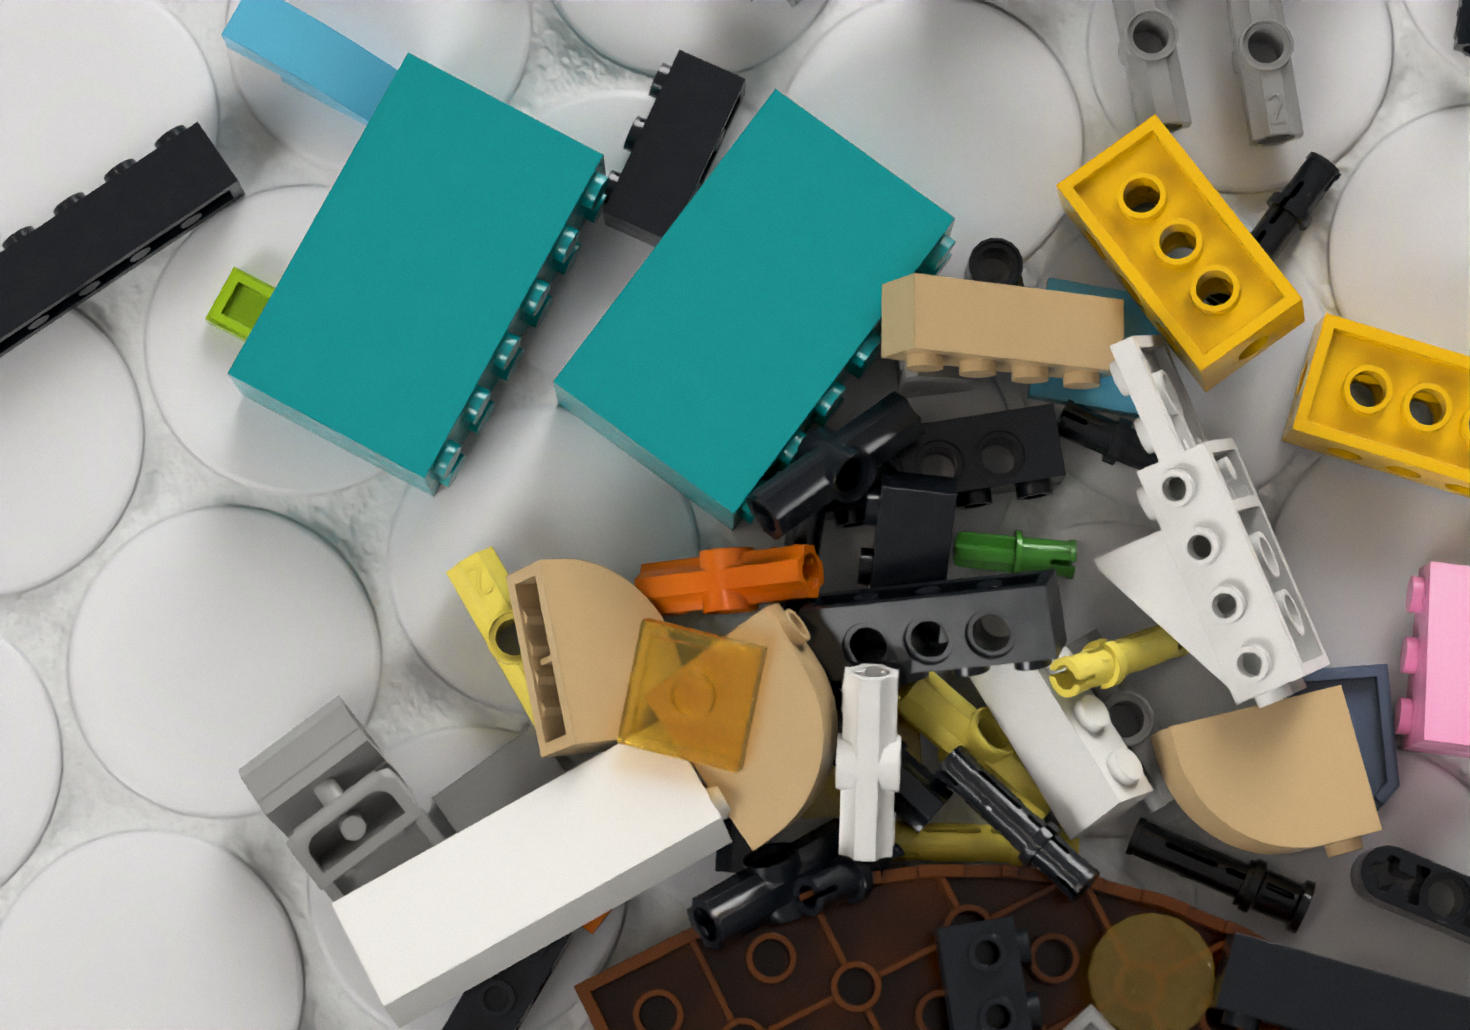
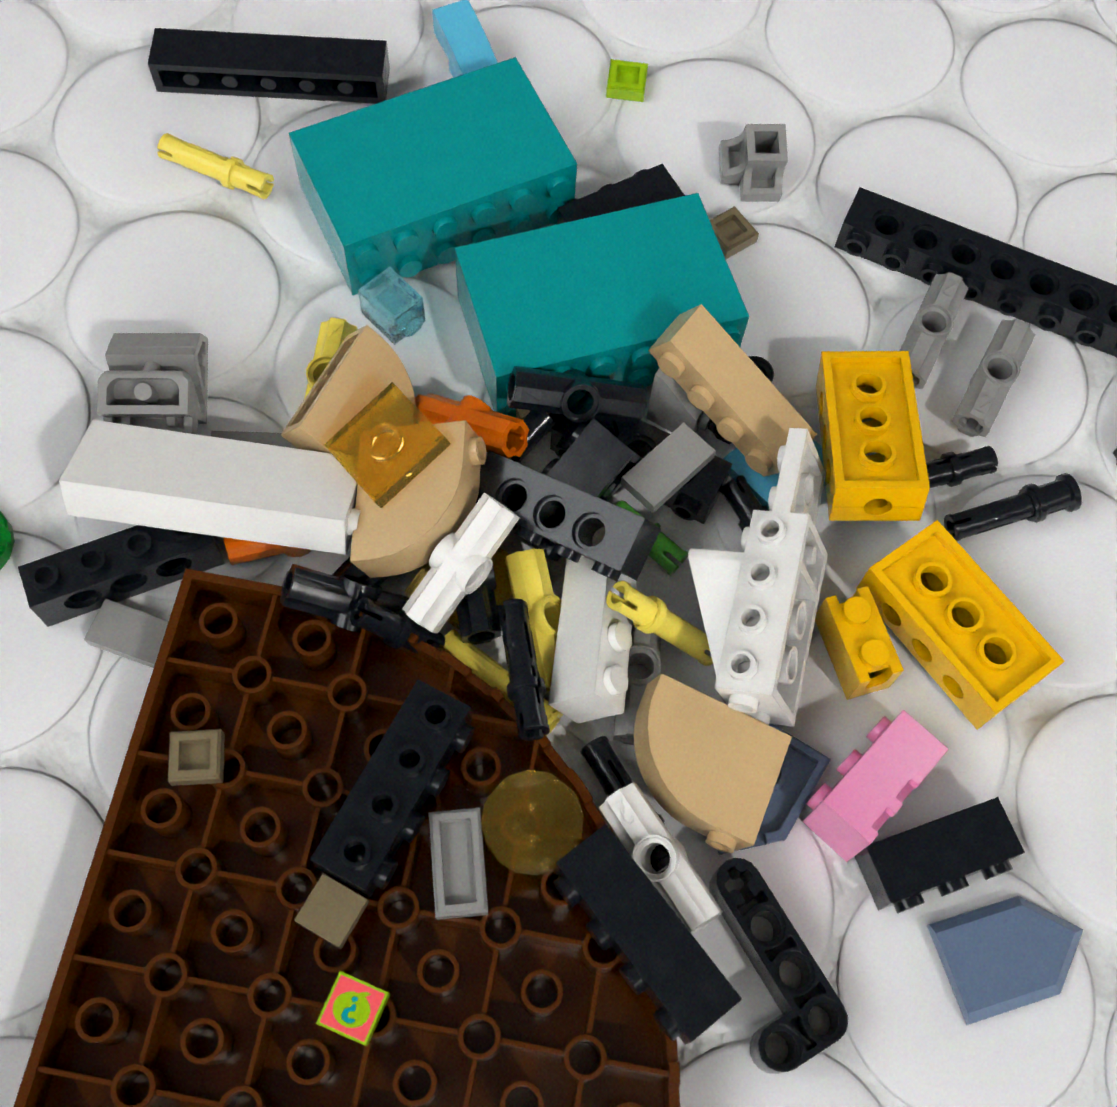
camera: 35 degrees right, 15 degrees down
(138, 450) = (229, 171): none -> light yellow pin
(507, 484) = (392, 305): none -> clear light blue brick
(815, 68) = (733, 232): none -> dark tan tile
(991, 466) = (668, 467): none -> light grey tile
(1330, 512) = (858, 643): none -> yellow brick
(1338, 932) = (640, 833): none -> white piece
(1404, 189) = (1030, 503): none -> black pin

